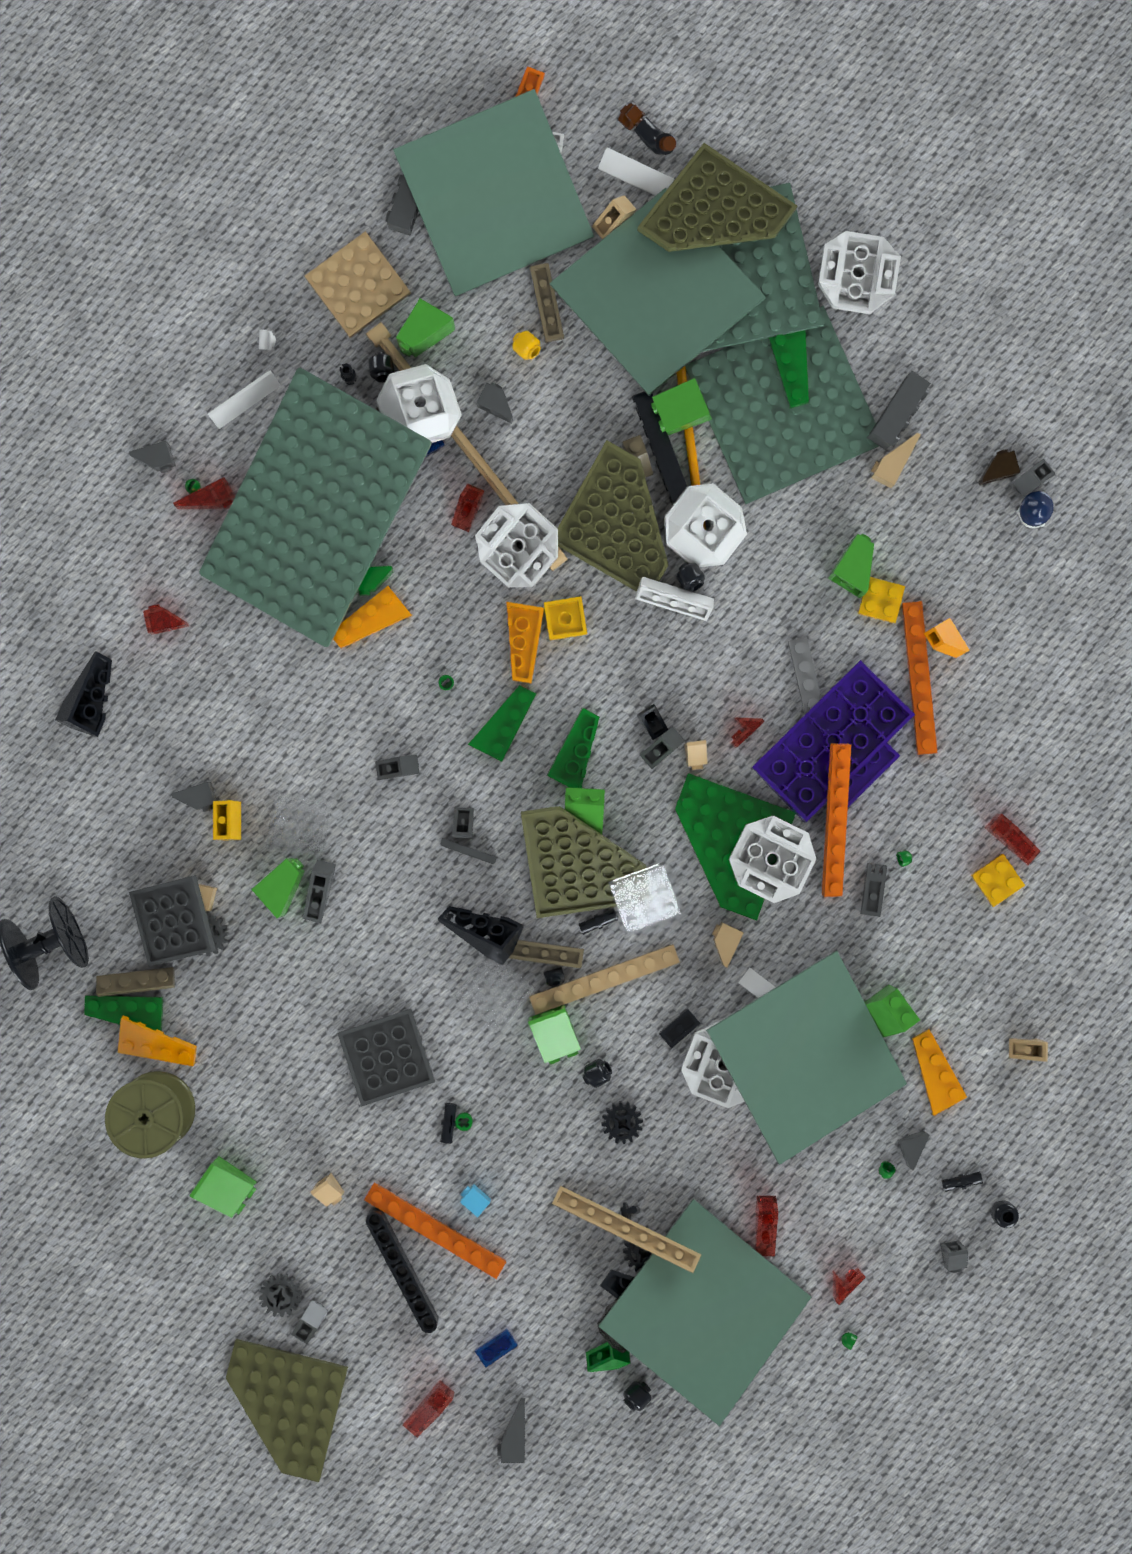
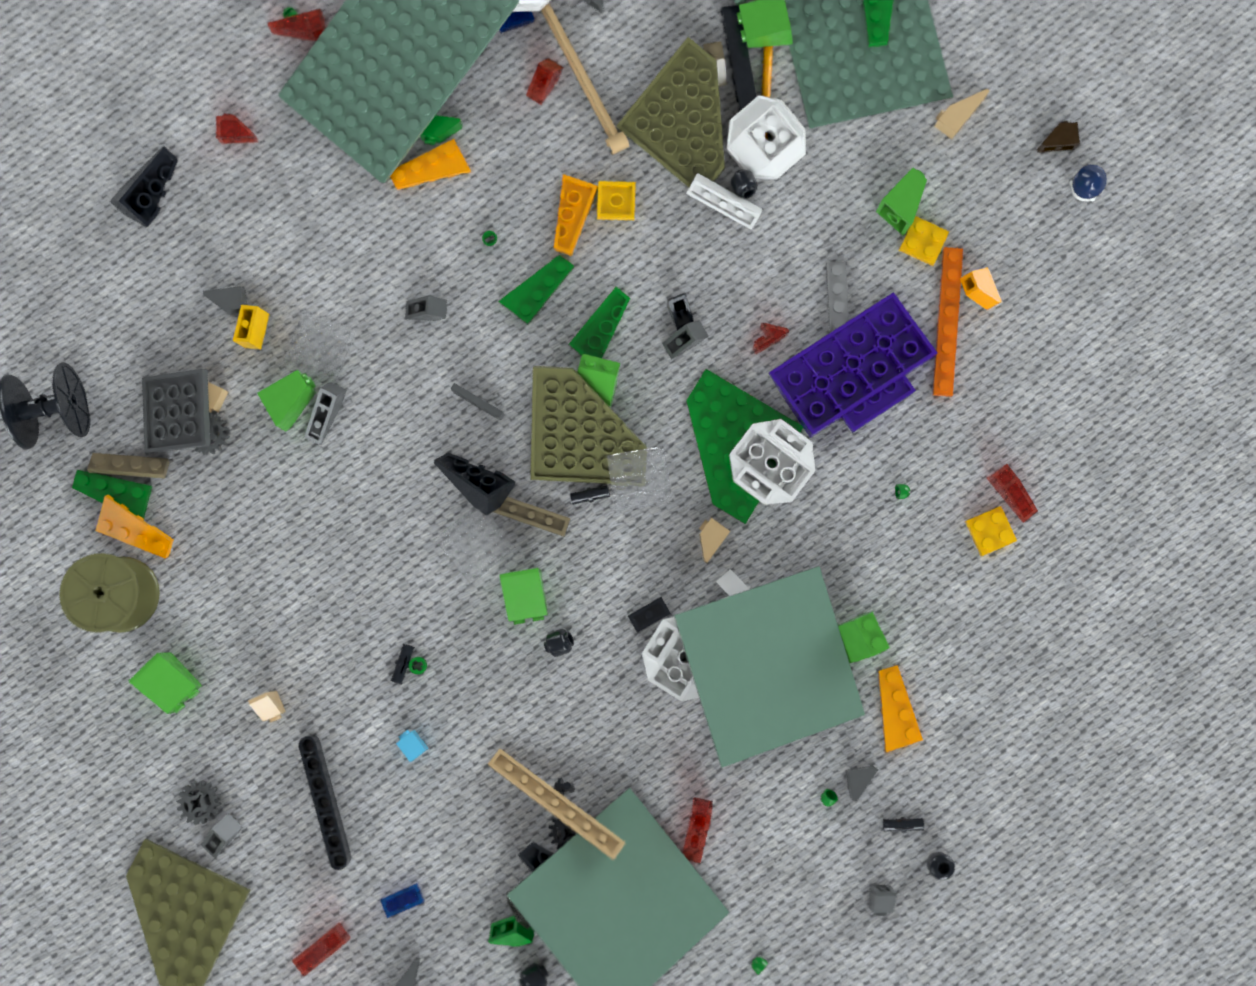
camera: 15 degrees right, 5 degrees down
(386, 1057) = (355, 586): dark grey plate -> none
(435, 1230) = (366, 769): orange plate -> none
(463, 823) = (477, 375): dark grey slope -> none
(499, 547) = (566, 117): white piece -> none
(554, 977) = (536, 541): black plate -> none
(604, 979) = (585, 552): tan plate -> none
(614, 1132) = (581, 707): black gear -> none
(696, 754) = (717, 349): tan slope -> none
(836, 819) = (842, 438): orange plate -> none
(843, 1288) = (762, 910): clear red slope -> none
(873, 890) = (866, 517): dark grey hinge -> none
(899, 410) = (972, 66): dark grey brick -> none
(1028, 1049) = (993, 703): tan slope -> none
(1033, 478) = (1091, 153): dark grey slope -> none

